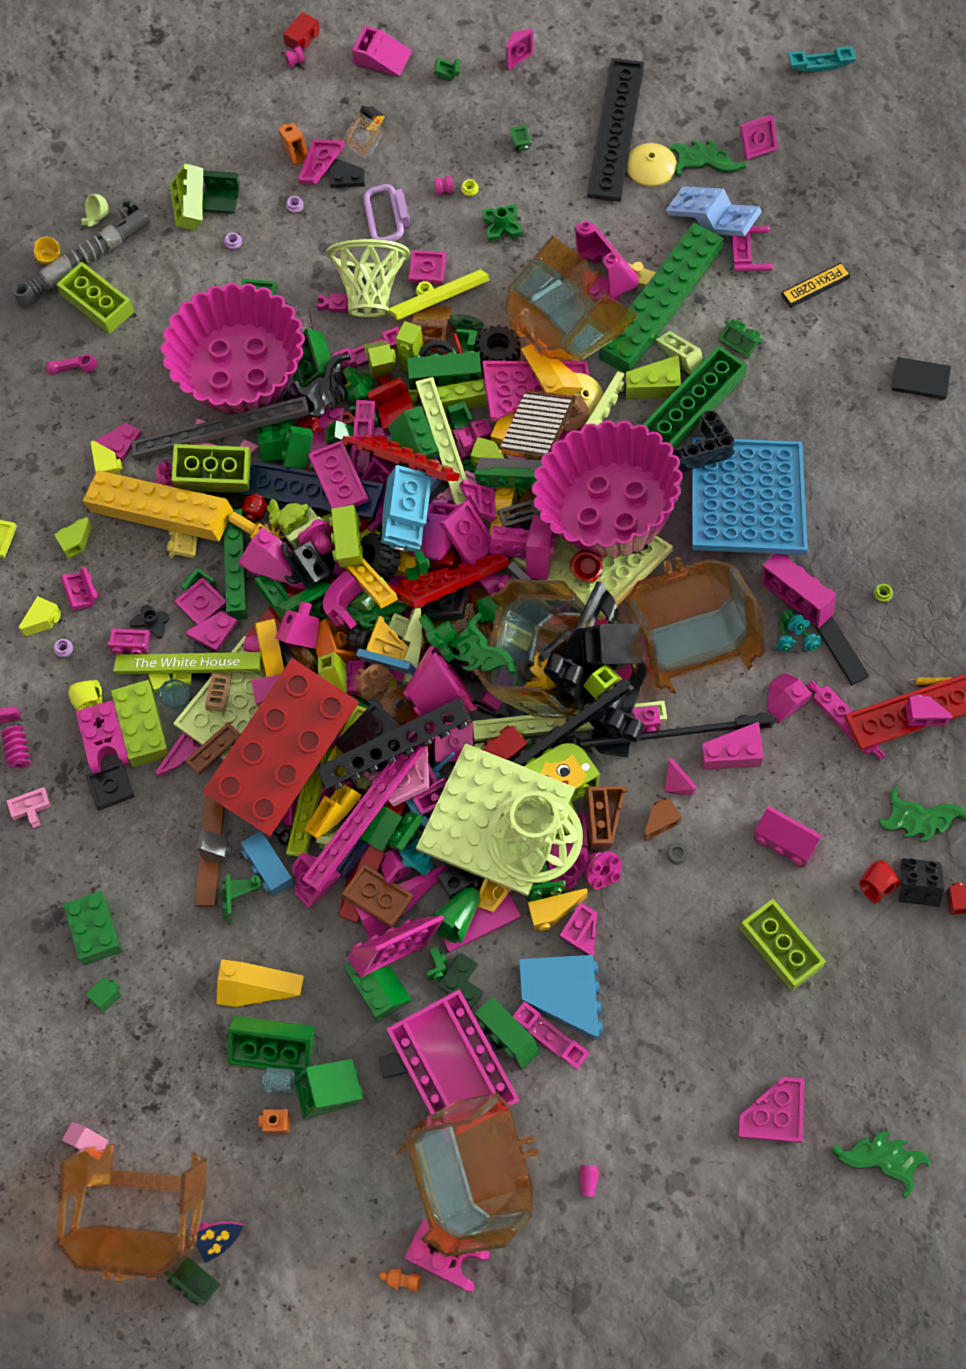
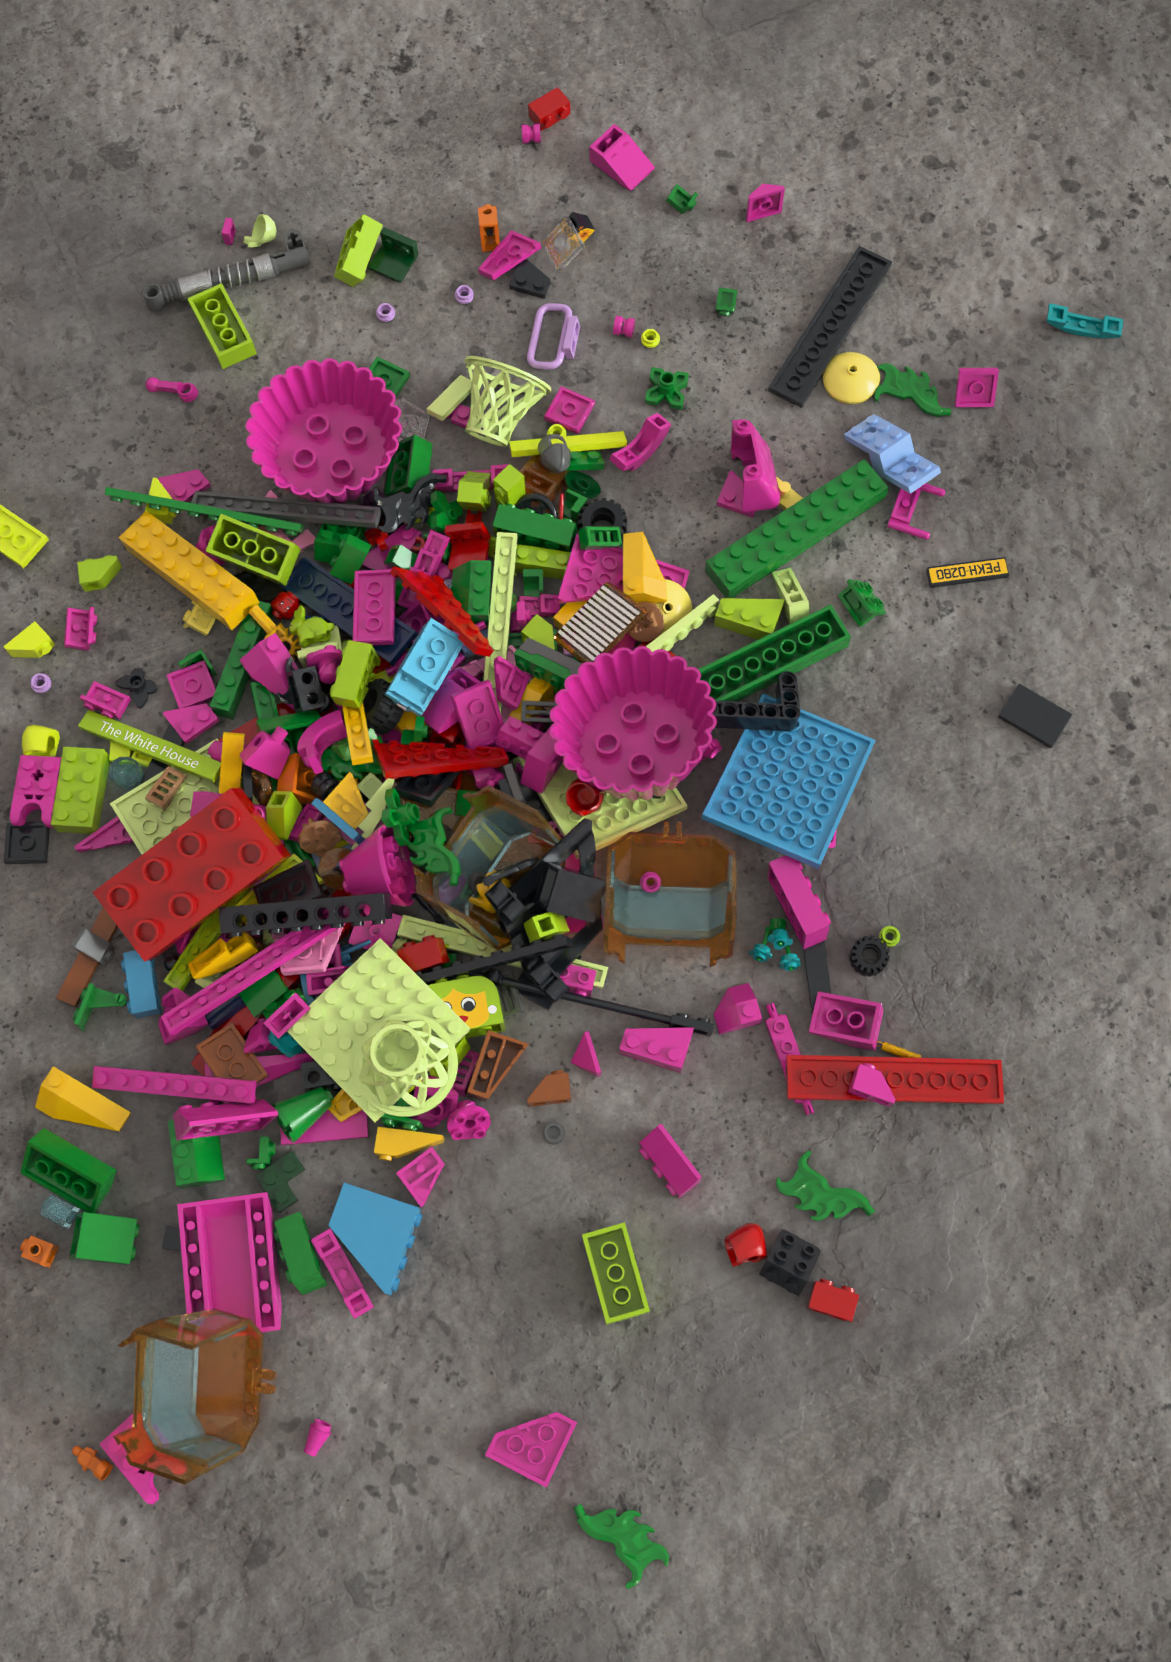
camera: 20 degrees right, 5 degrees up
(46, 250) = (195, 258): yellow hair -> none
(65, 219) = (228, 231): none -> dark pink tile
(140, 454) = (195, 510): none -> green plate
(213, 749) = (134, 845): dark orange tile -> none
(322, 290) = (450, 398): none -> yellowish green tile
(335, 934) = (174, 1084): none -> dark pink plate
(414, 834) = (287, 1015): none -> dark pink slope
(434, 306) = (554, 456): none -> dark grey helmet
(458, 303) = (586, 461): none -> green plate
(495, 363) = (588, 541): none -> green slope
(503, 273) = (644, 445): none -> dark pink arch
(557, 310) = (680, 504): clear orange windscreen -> none
(673, 619) = (650, 888): none -> dark pink plate
(879, 605) = (878, 947): none -> black tyre
(880, 670) = (847, 1020): none -> dark pink slope

